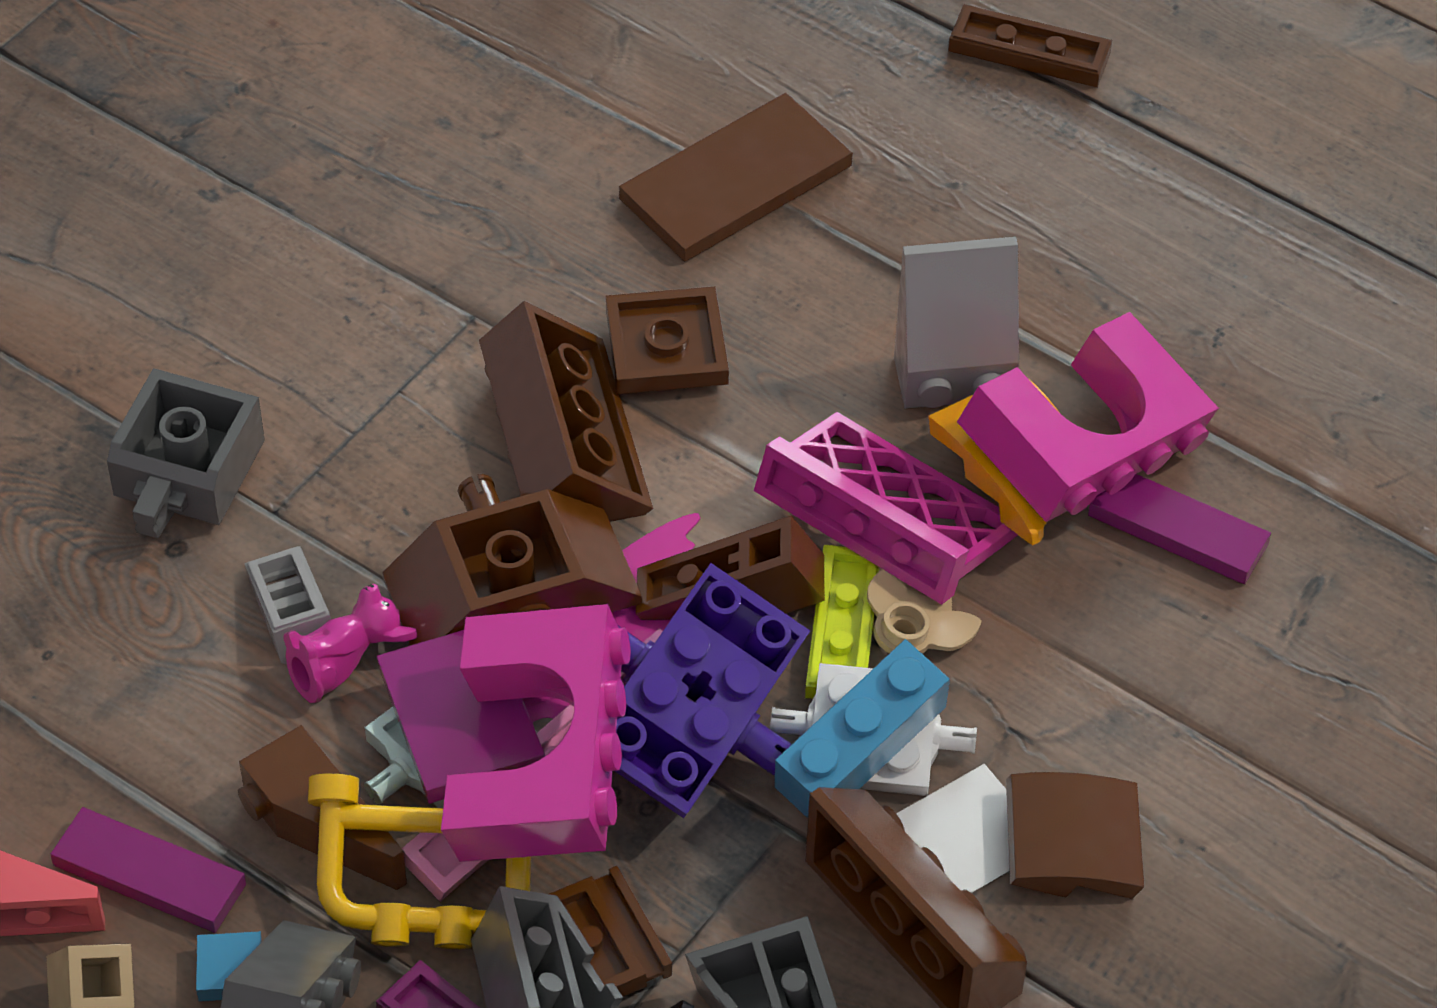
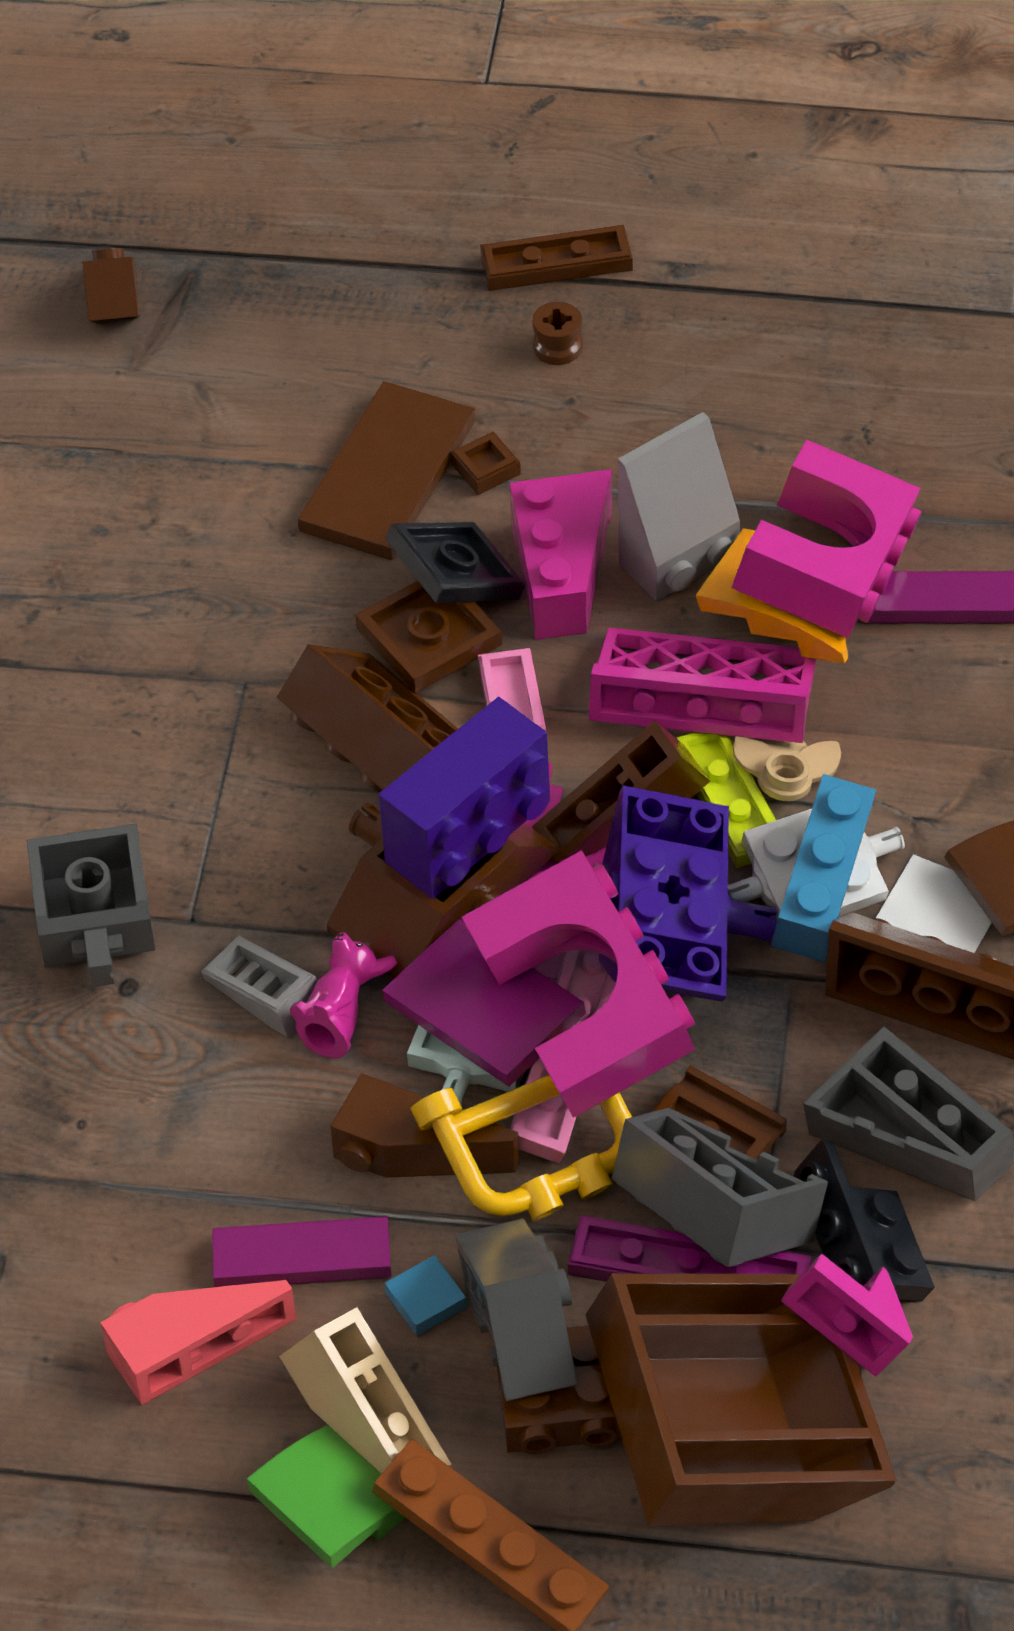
camera: 25 degrees left, 0 degrees up
(546, 505) = (465, 797): none -> dark purple brick
(703, 438) = (514, 680): none -> bright pink tile
(729, 287) = (455, 562): none -> black tile
(831, 208) = (485, 463): none -> reddish brown tile
(833, 319) = (559, 547): none -> dark pink wedge
(978, 115) = (557, 333): none -> reddish brown wheel

